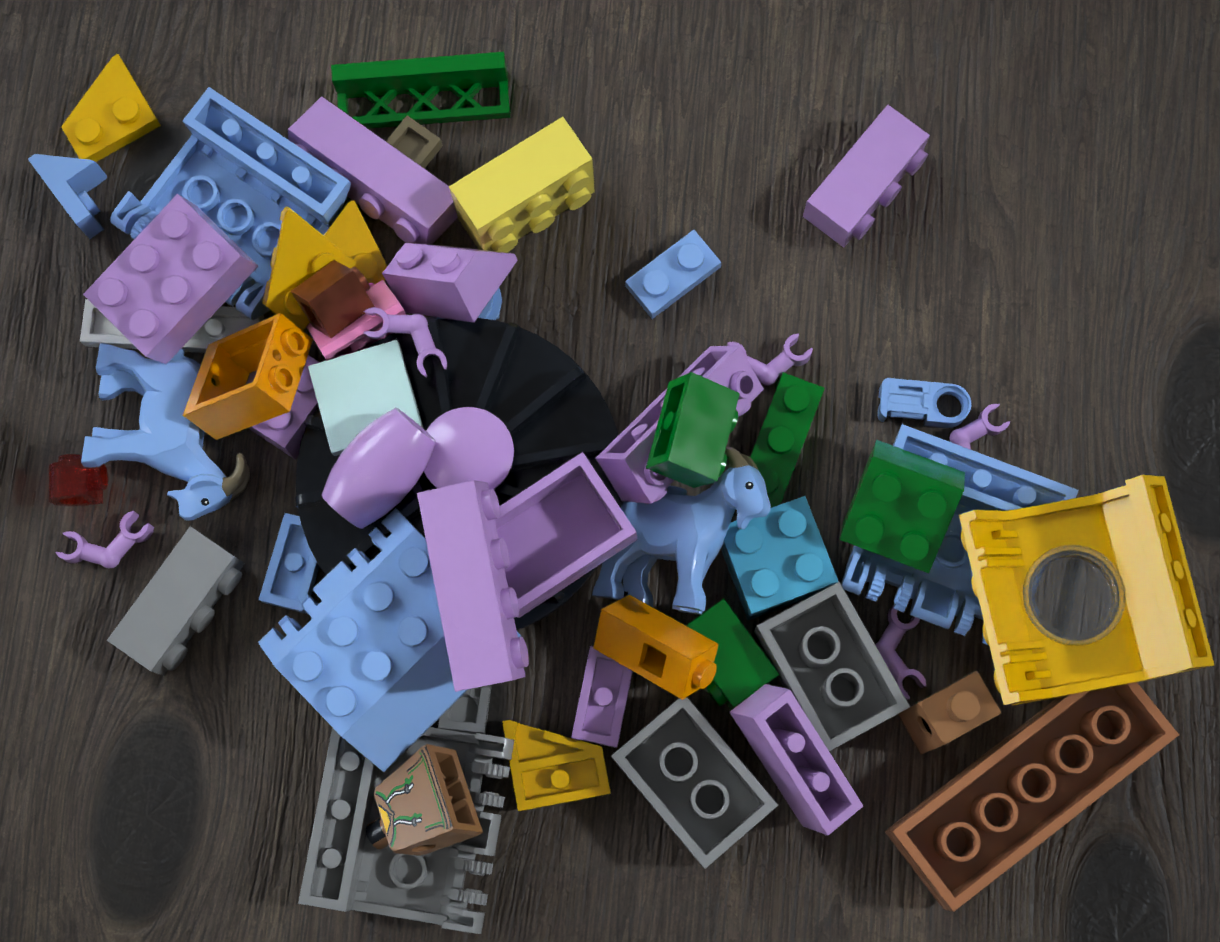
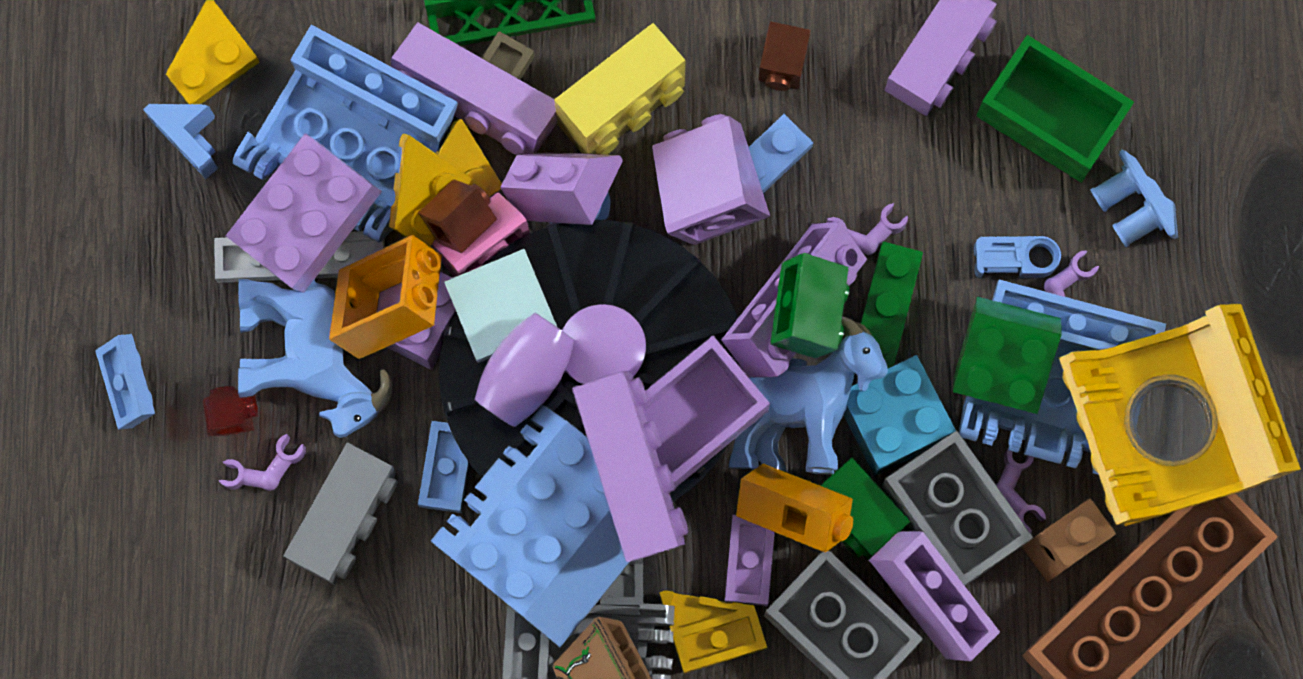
camera: 10 degrees left, 0 degrees up
(409, 324) = (537, 233): lavender arm -> none
(604, 290) = (708, 181): none -> lavender slope
(700, 169) = (783, 56): none -> copper brick
(980, 250) = (1054, 108): none -> green piece
(1080, 366) = (1157, 210): none -> light blue connector

